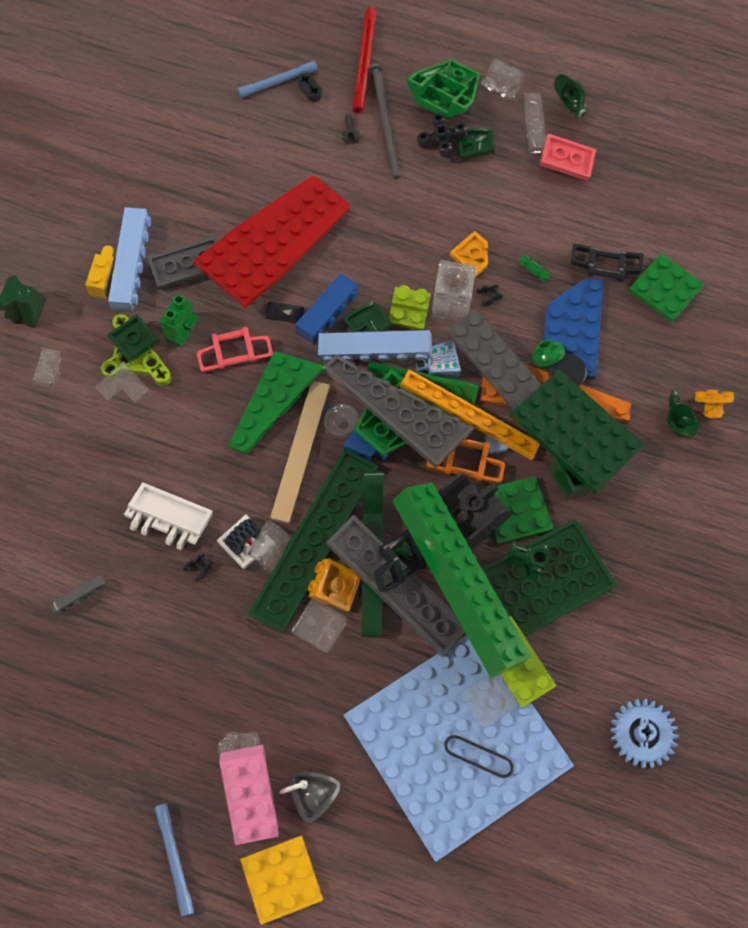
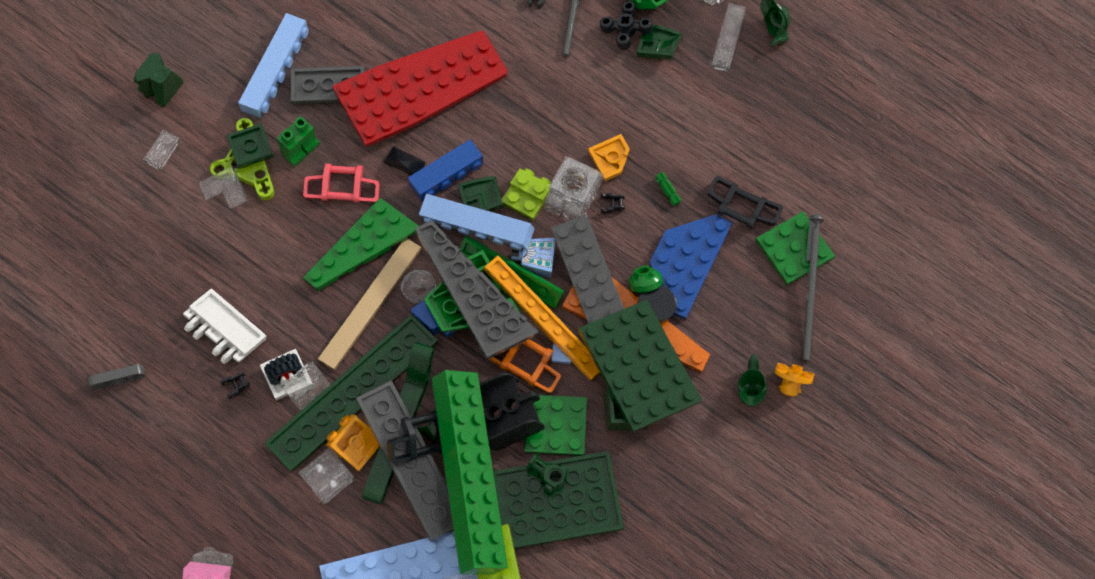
camera: 20 degrees right, 0 degrees up
(101, 273) = (241, 72): yellow brick -> none
(567, 157) = (745, 84): coral plate -> none
(678, 258) = (812, 255): none -> dark grey bar

